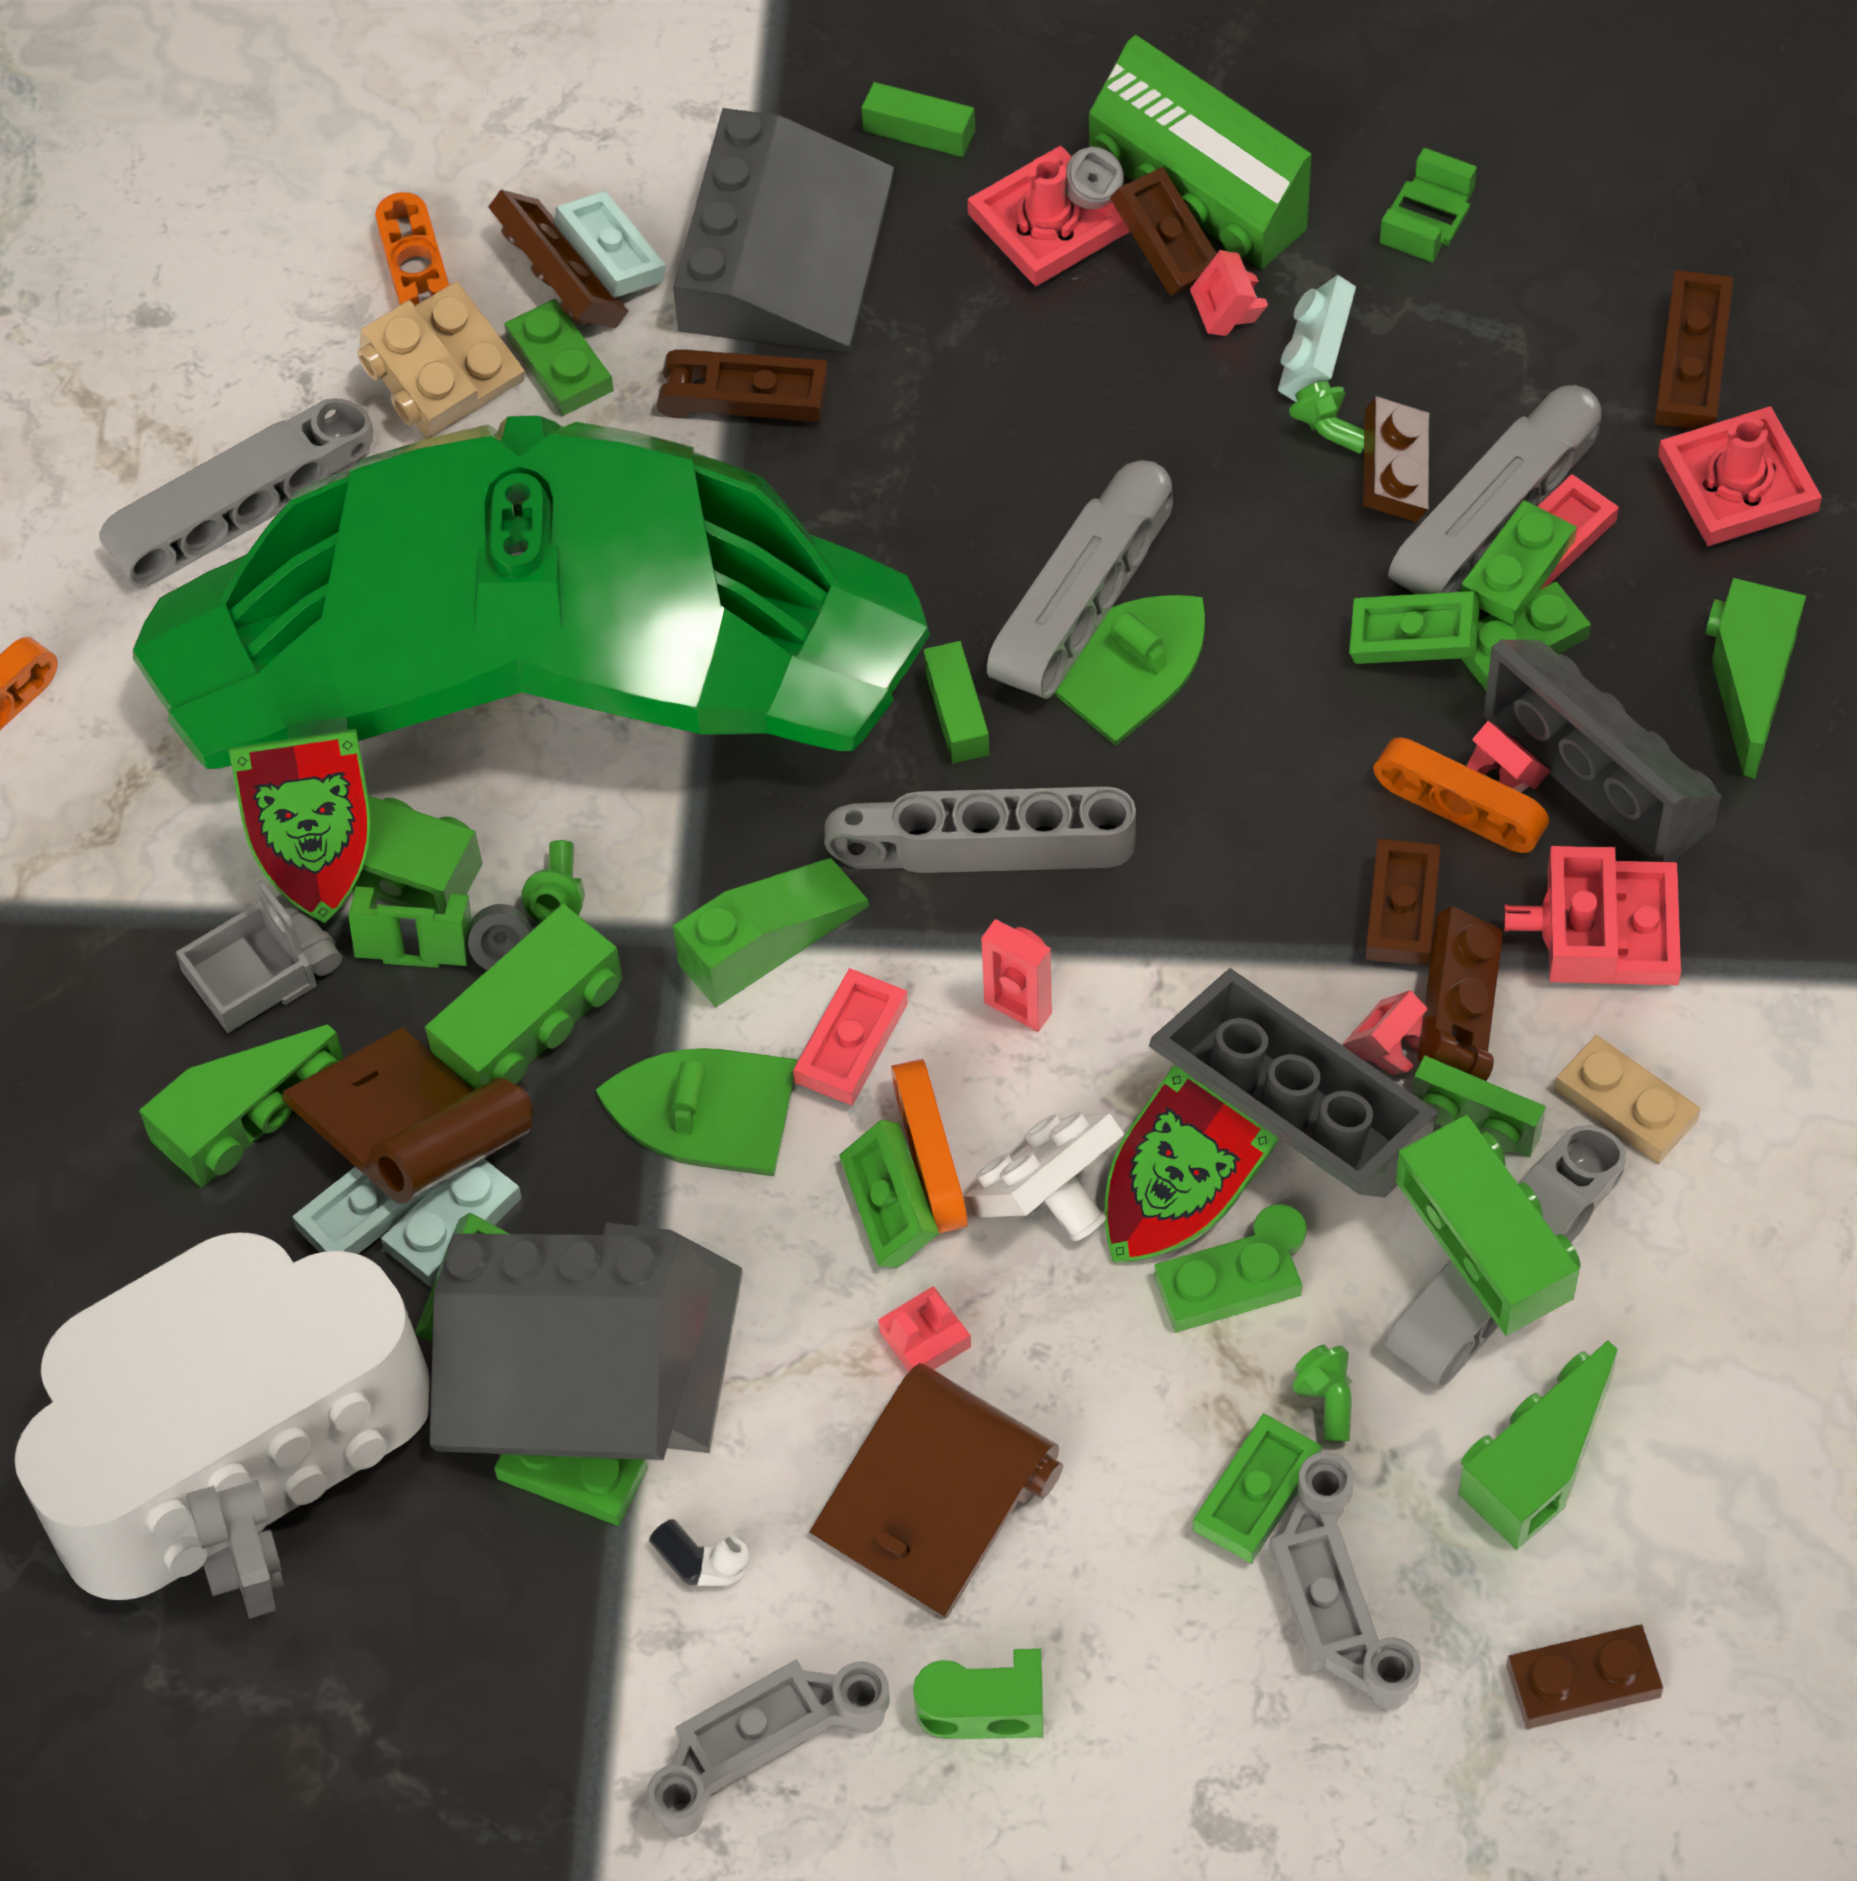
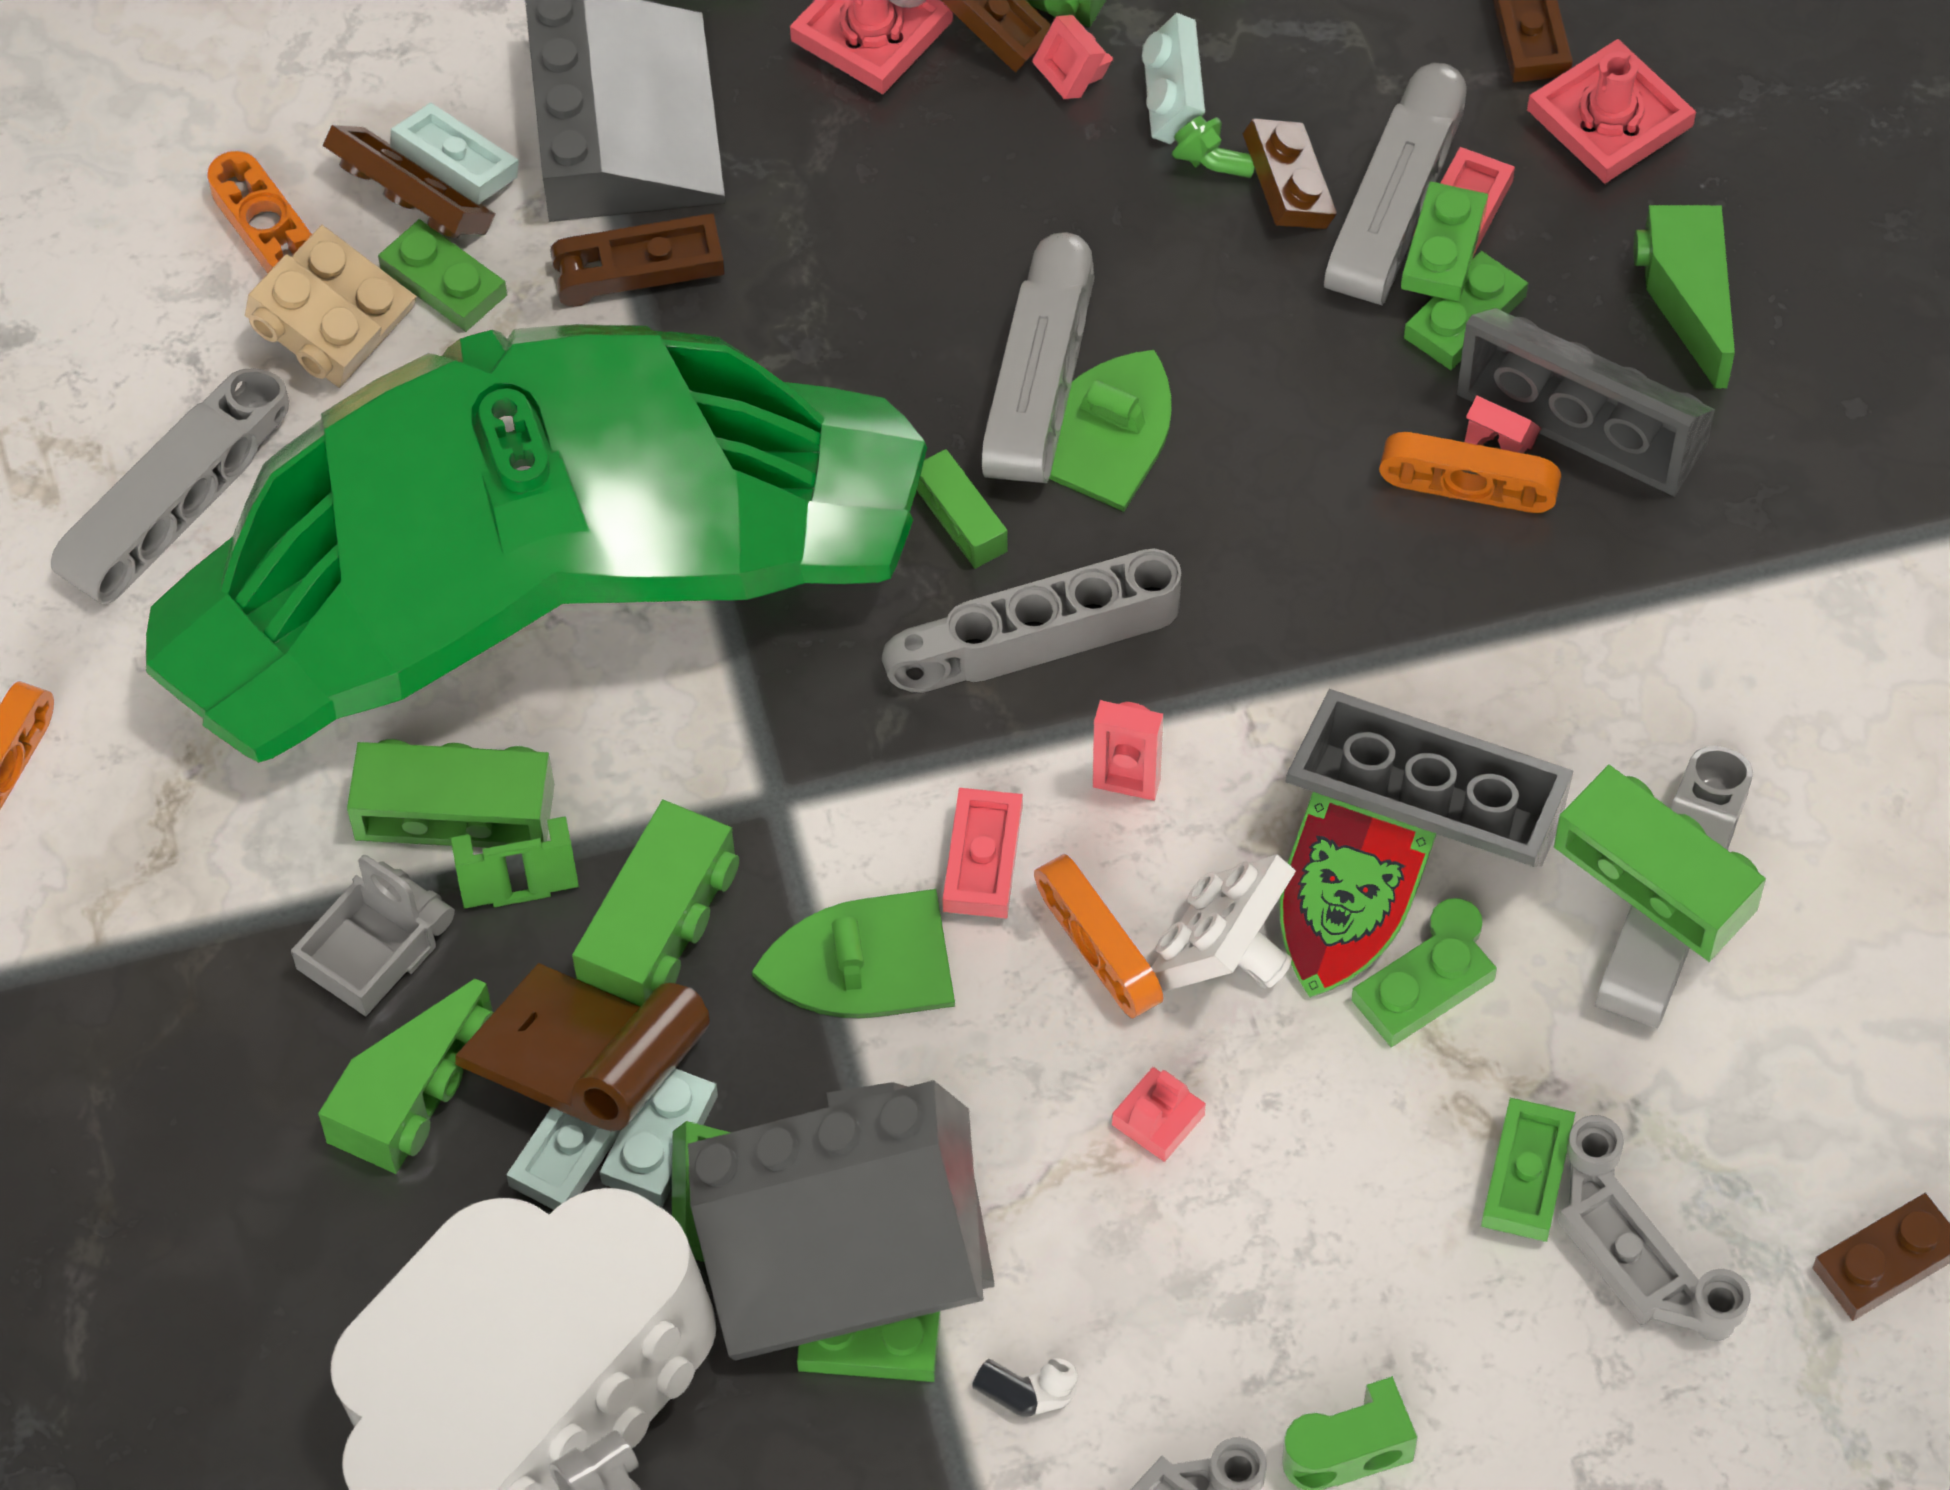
camera: 20 degrees left, 0 degrees up
(306, 816) = (385, 780): shield -> none
(495, 933) = (603, 848): dark grey tile -> none
(553, 886) = (639, 790): bright green plate -> none
(763, 926) = (857, 772): bright green slope -> none
(888, 1194) = (1078, 991): bright green plate -> none
(939, 1479) = (1228, 1257): reddish brown door -> none
(1324, 1374) = (1551, 1047): bright green plate -> none
(1382, 1029) = (1487, 704): coral tile -> none
(1403, 902) = (1454, 586): reddish brown plate -> none
(1414, 627) = (1369, 327): bright green plate -> none
(1461, 992) = (1542, 660): reddish brown plate -> none
(1504, 1114) = (1592, 750): bright green plate -> none
(1532, 1465) = (1778, 1068): bright green slope -> none
(1606, 918) = (1646, 552): coral plate -> none
(1627, 1099) = (1726, 714): tan plate -> none

